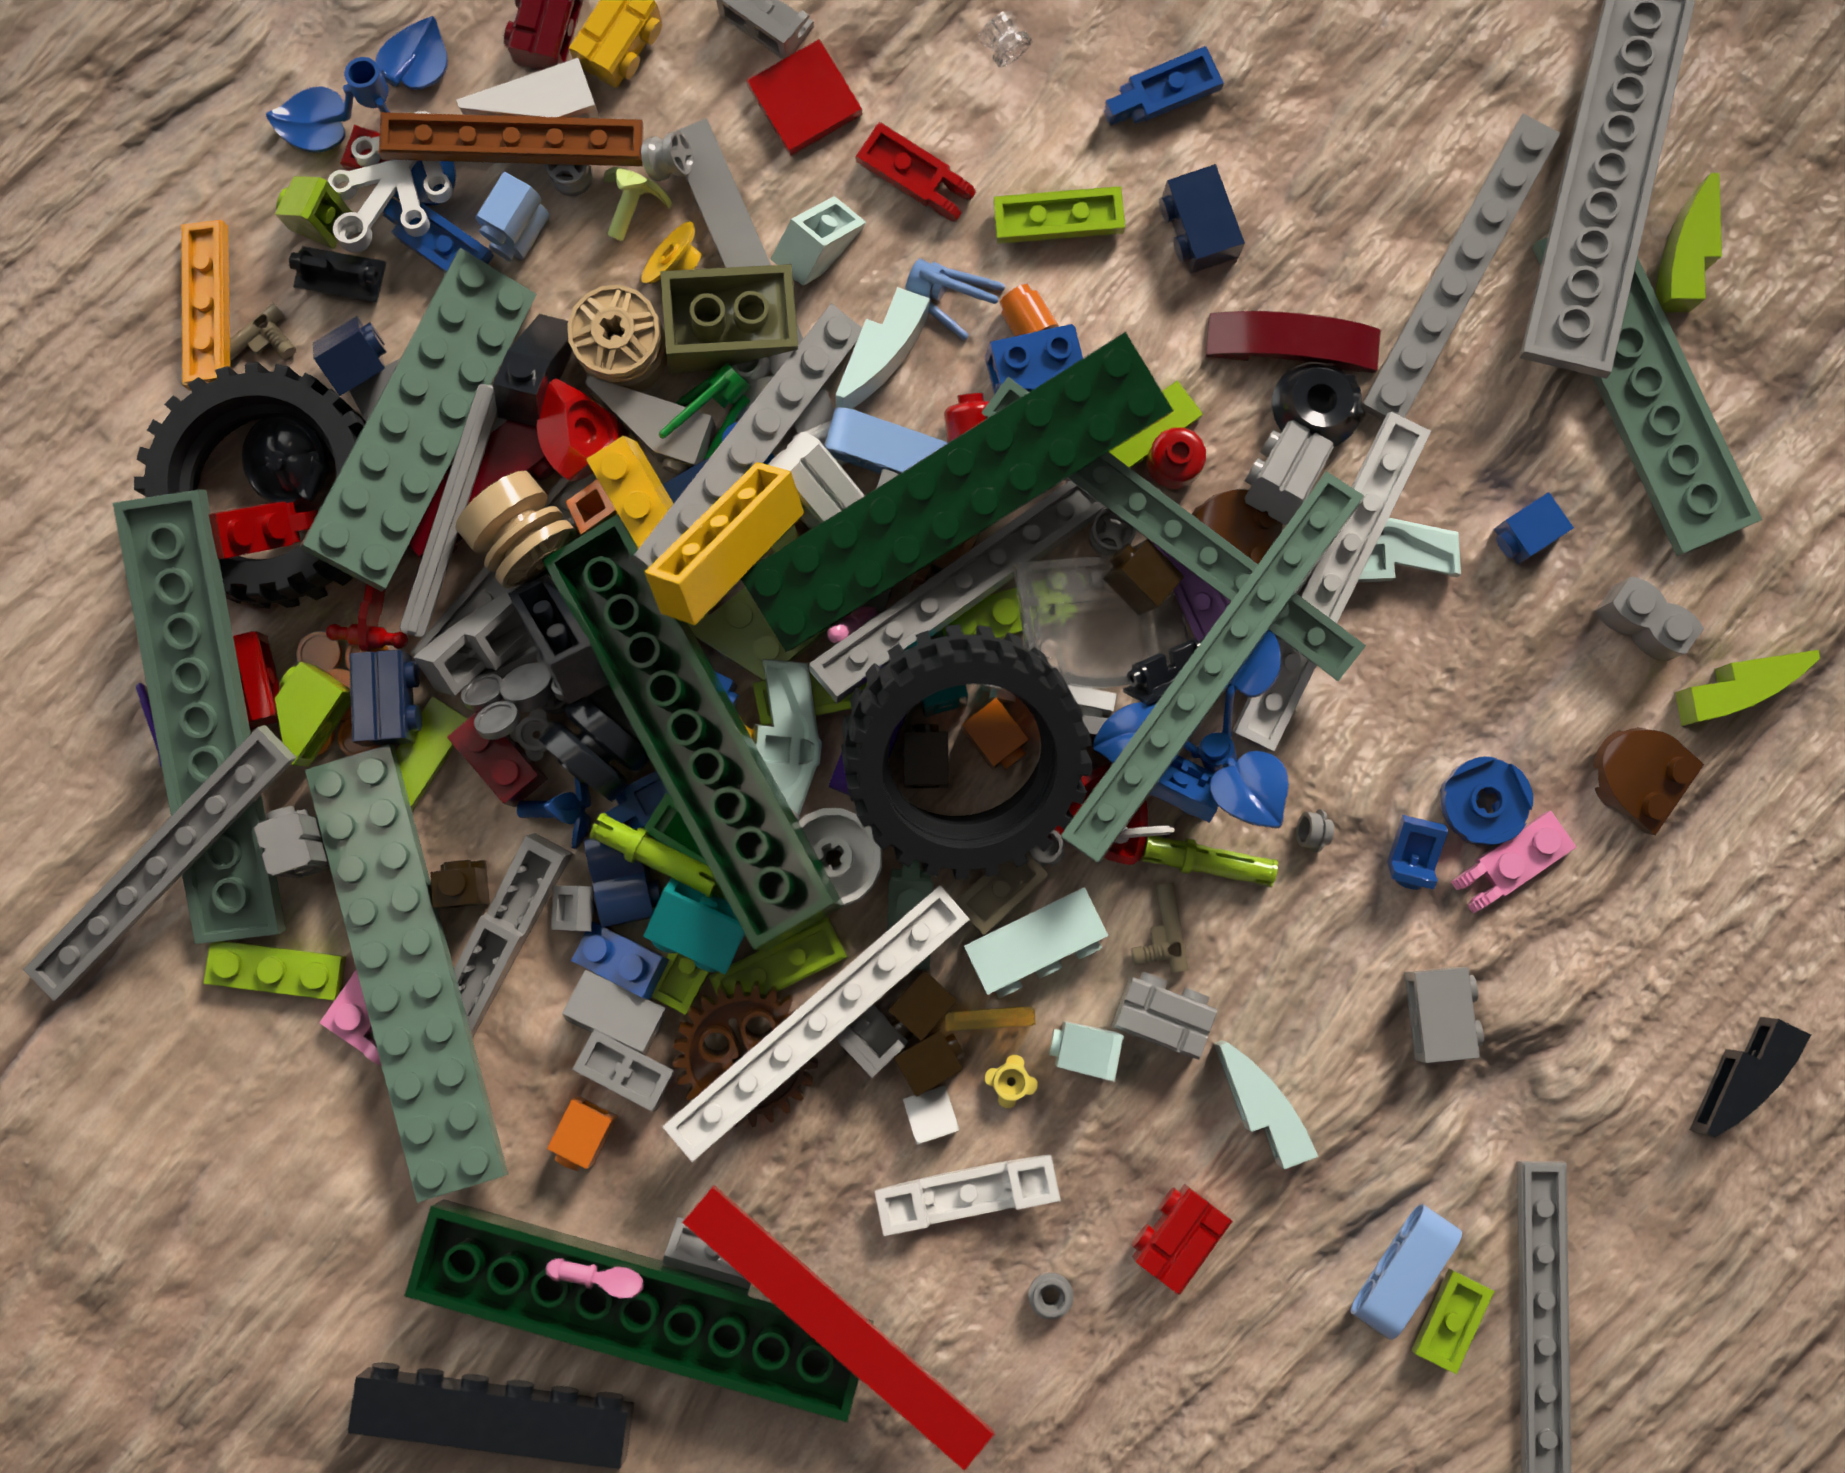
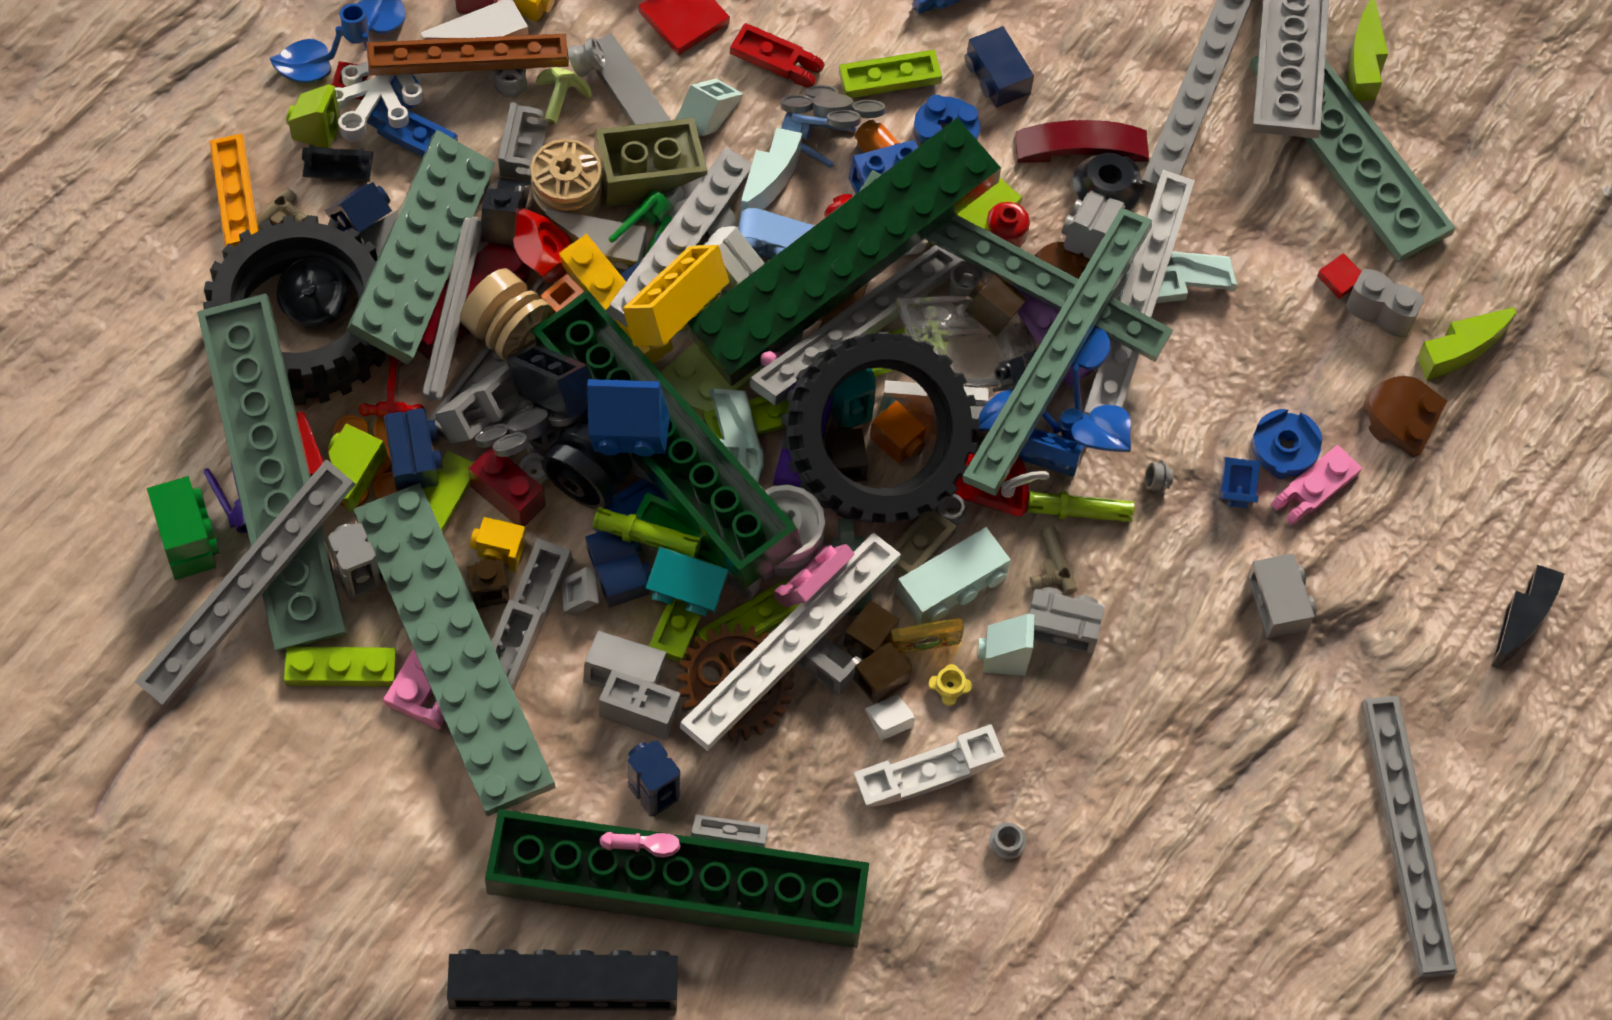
camera: 15 degrees left, 20 degrees down
(90, 776) = (184, 527): none -> green piece
(258, 528) = (303, 332): red hinge -> none
(480, 832) = (499, 541): none -> yellow brick
(512, 217) = (474, 106): light blue brick -> none
(565, 808) = (569, 516): blue plant -> none
(572, 265) = (521, 141): none -> light grey hinge
(581, 1134) = (609, 756): orange brick -> none
(620, 960) = (624, 622): blue plate -> none
(625, 1177) = (653, 777): none -> dark blue brick
(635, 726) = (627, 417): none -> blue slope
(672, 254) = (600, 119): yellow piece -> none
(839, 1327) = (843, 858): red tile -> none
(858, 934) = (813, 575): none -> bright pink plate
(975, 263) = (835, 107): none -> flat silver piece
(1118, 274) = (944, 110): none -> blue plate
(1180, 1237) = (1105, 781): red brick -> none
(1265, 1107) = (1154, 676): light aqua slope -> none
(1406, 1271) = (1288, 787): light blue beam -> none
(1452, 1321) = (1331, 821): lime plate -> none
(1532, 528) = (1285, 250): blue brick -> none
(1598, 568) = (1340, 275): none -> red tile

